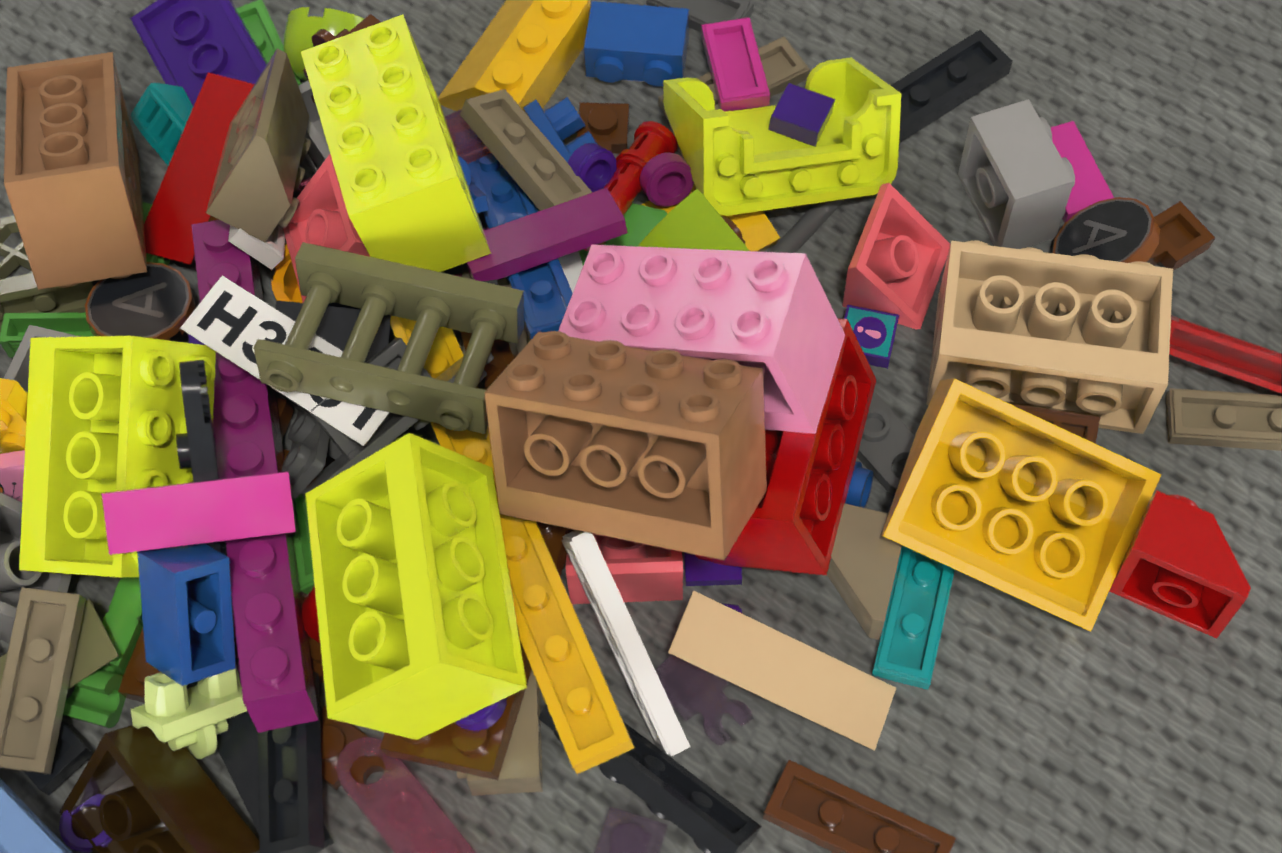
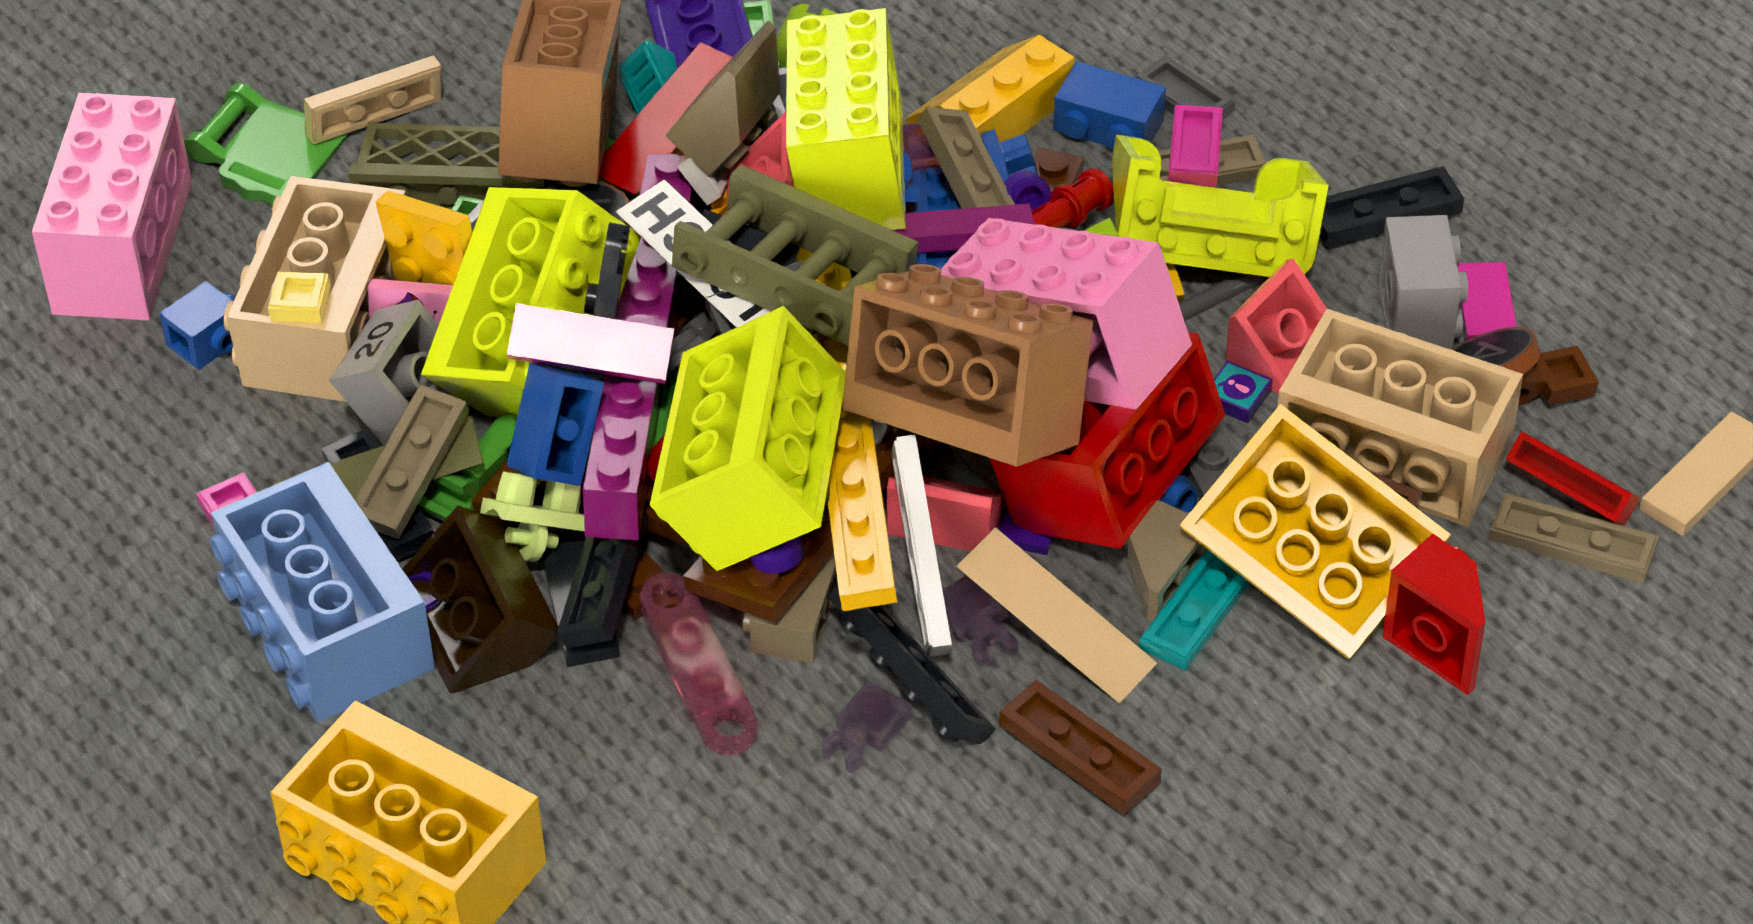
camera: 15 degrees right, 15 degrees down
(666, 179) = (1089, 210): magenta tile -> none
(801, 114) = (1242, 197): dark purple tile -> none

